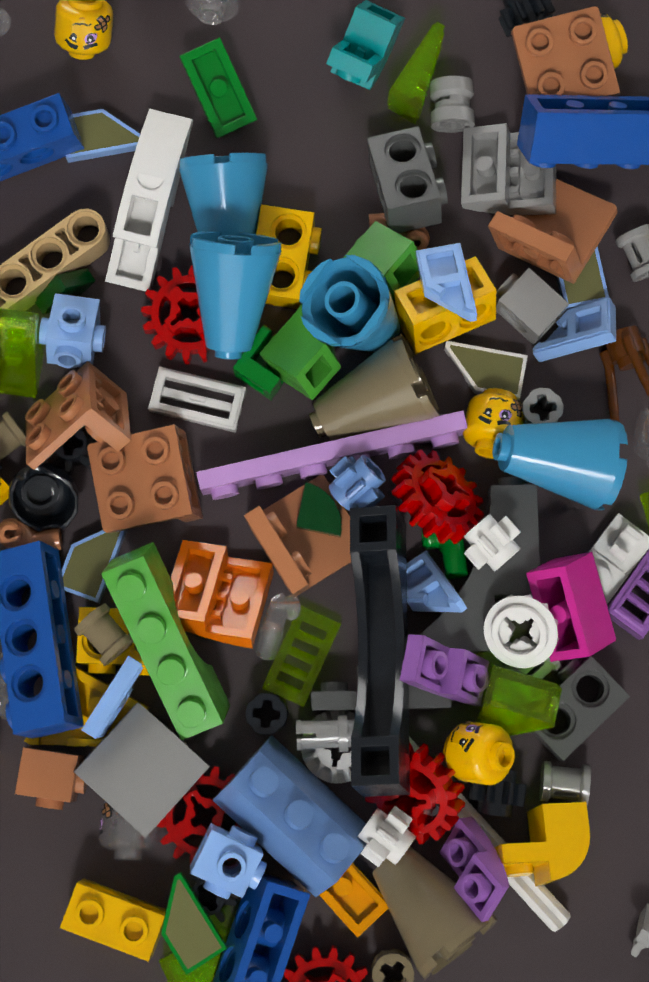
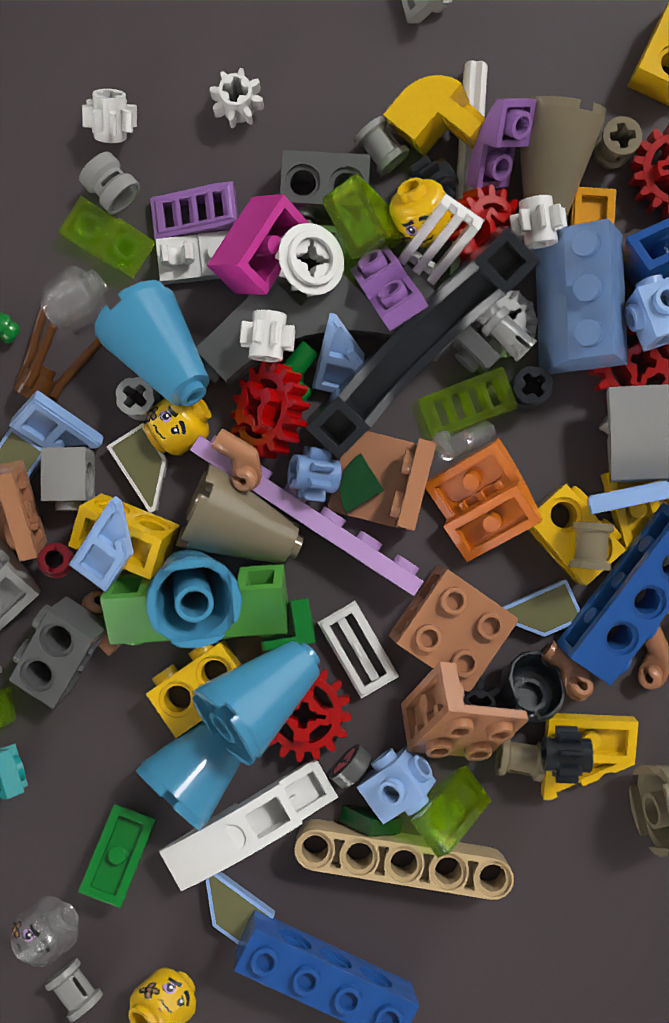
camera: 135 degrees left, 5 degrees up
(117, 311) = (350, 766): none -> dark grey tile
(149, 611) = (543, 539): bright green arch -> none
(415, 440) = (244, 460): none -> nougat arm
(439, 723) = (424, 262): none -> white tile
(473, 226) = (45, 555): none -> dark red pin

